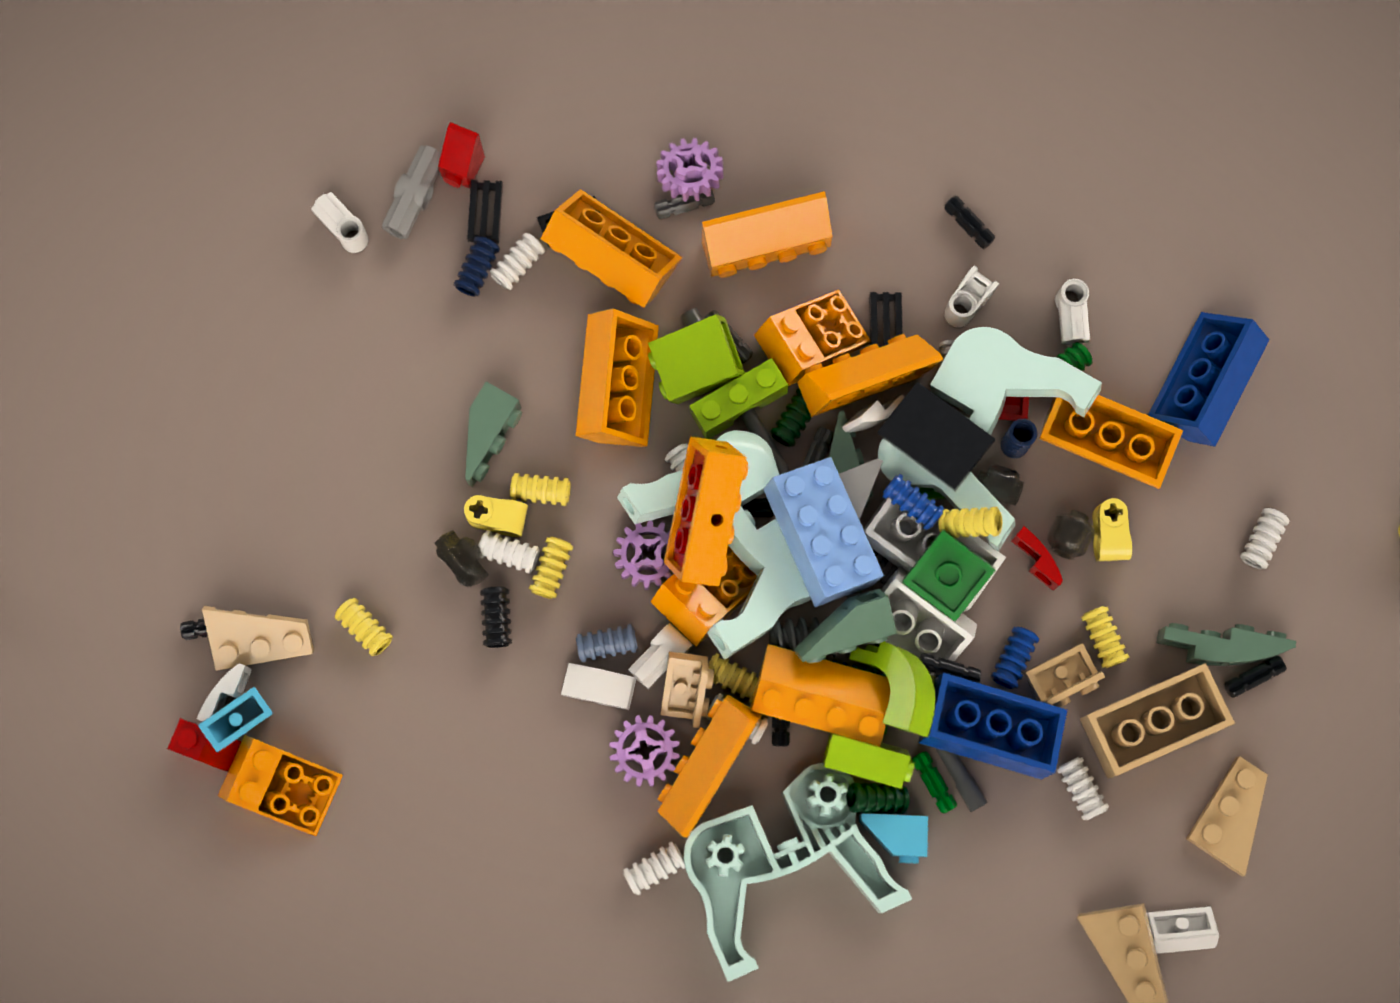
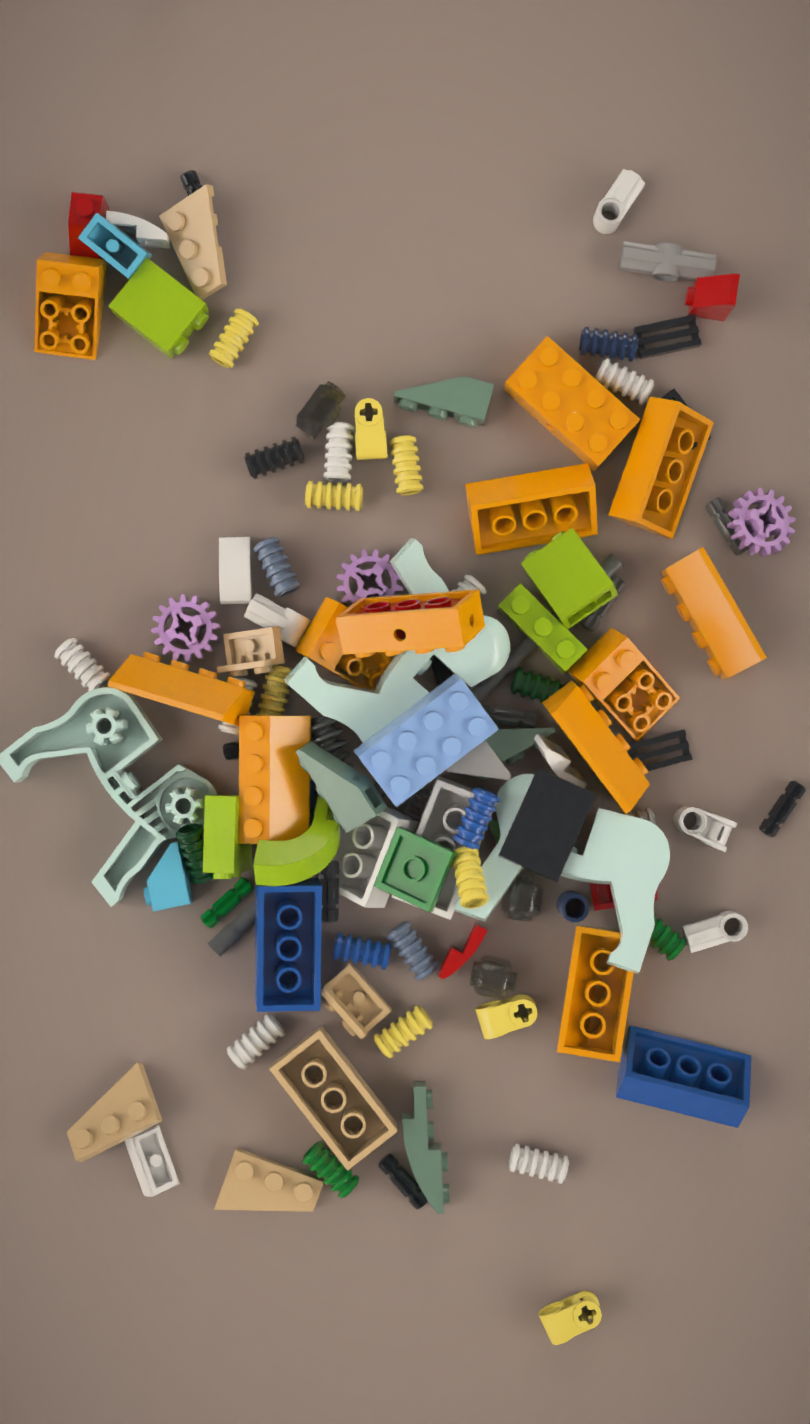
camera: 75 degrees right, 10 degrees up
(312, 693) = (159, 309): none -> lime brick
(525, 315) = (570, 403): none -> light orange brick
(1026, 607) = (412, 950): none -> sand blue piece
(1228, 745) = (330, 1169): none -> green piece

